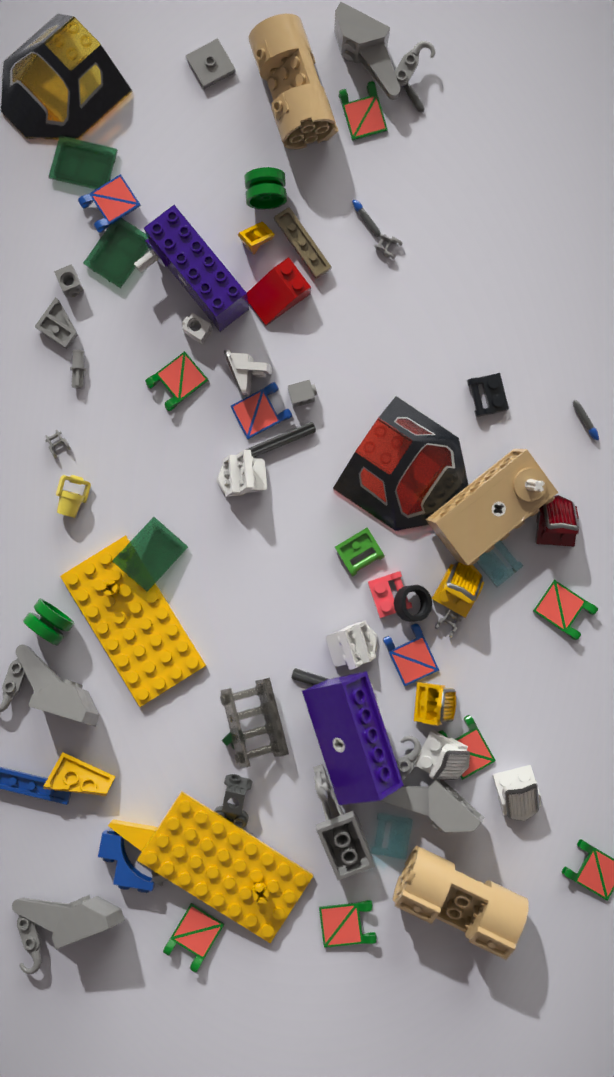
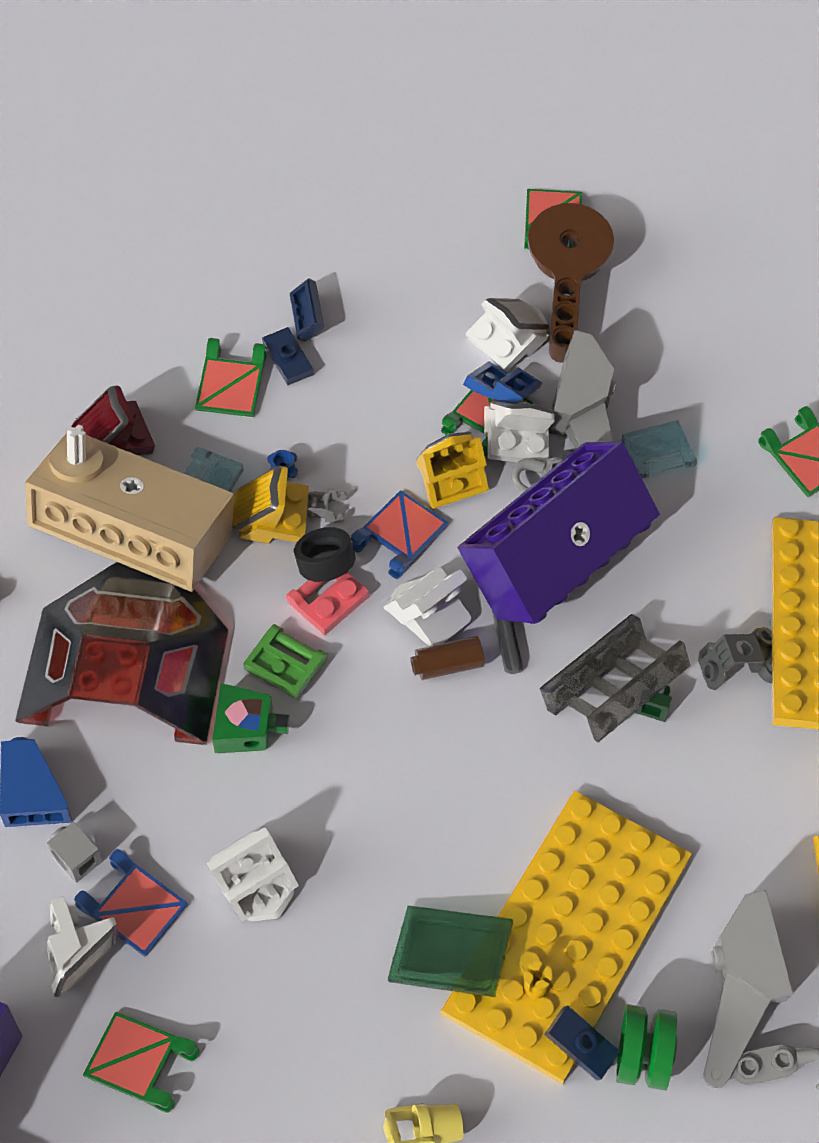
camera: 115 degrees left, 25 degrees down
(70, 593) = (582, 1043): none -> dark blue plate
(200, 335) = (29, 1054): white brick -> none
(282, 439) = (167, 851): dark grey axle -> none
(315, 639) = (448, 658): none -> reddish brown brick
(332, 513) = (245, 720): none -> green torso
(341, 836) = (704, 490): light grey slope -> none
(351, 386) = (28, 787): none -> blue slope
(478, 765) = (499, 385): none -> blue slope
(484, 911) = (694, 354): tan cylinder -> none
(493, 610) = (284, 457): none -> blue plate
(546, 854) = (568, 266): none -> reddish brown beam
(565, 650) = (288, 356): none -> dark blue plate
(593, 677) = (306, 310): none -> dark blue plate

